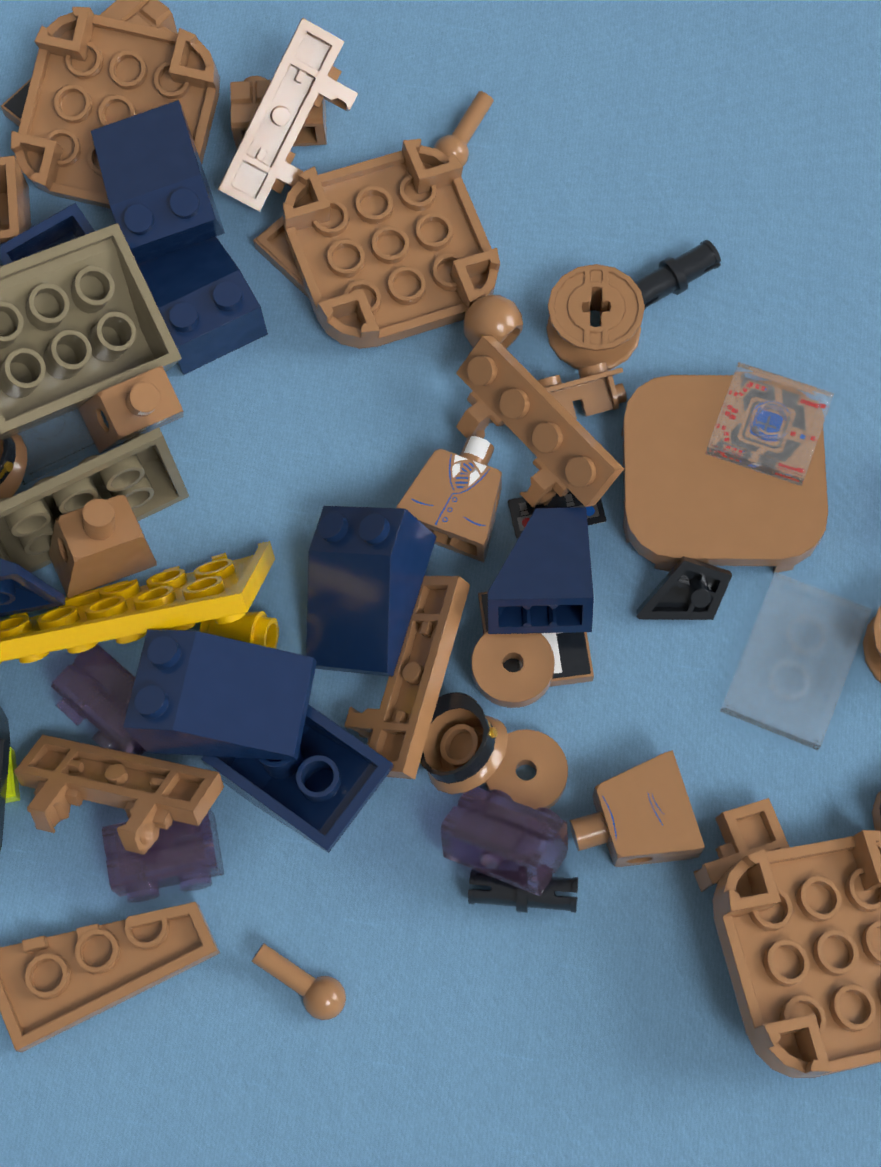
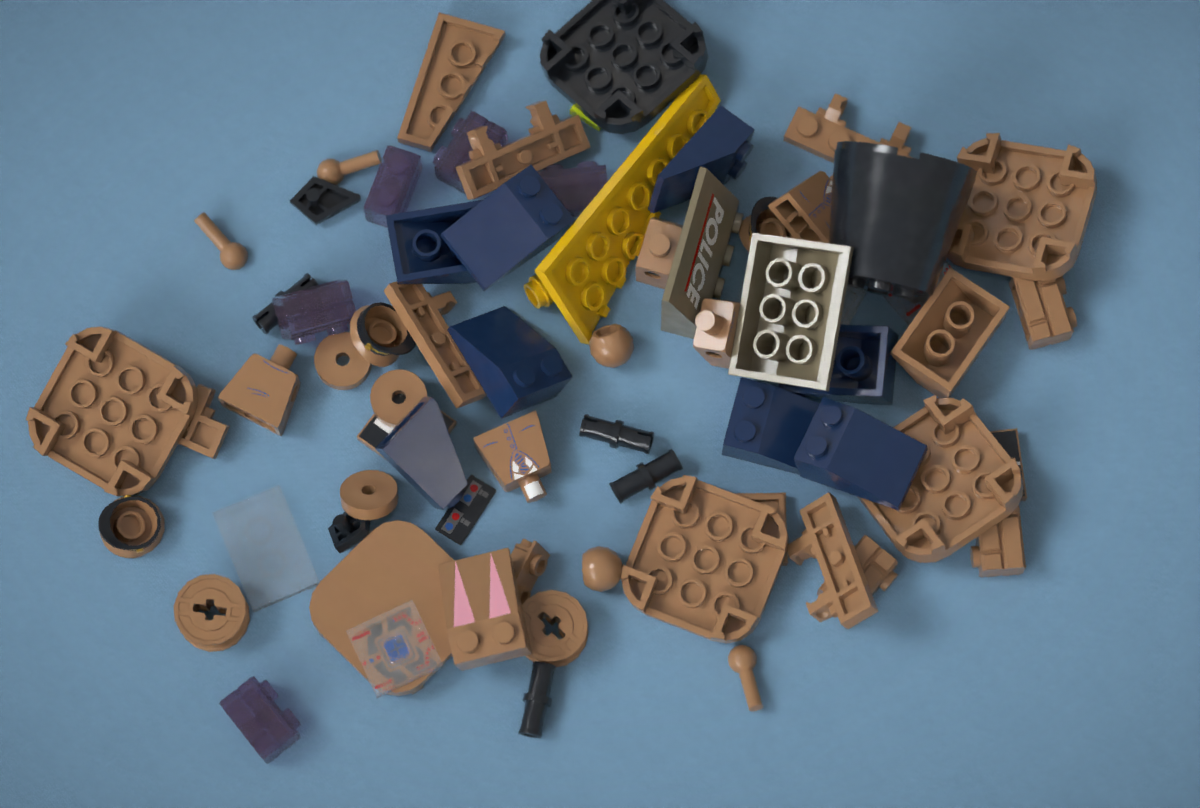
camera: 130 degrees right, 5 degrees up
(251, 511) = (611, 345): none -> medium nougat piece
(280, 896) = (392, 185): none -> clear purple brick
(341, 432) = (616, 434): none -> black pin
(357, 369) = (646, 476): none -> black pin
(366, 970) = (322, 200): none -> black piece
(524, 1015) = (232, 254): none -> medium nougat bar
(564, 449) = (494, 528): medium nougat hinge -> none
(620, 605) = (369, 495): none -> medium nougat piece
(649, 366) = (483, 610): none -> medium nougat slope

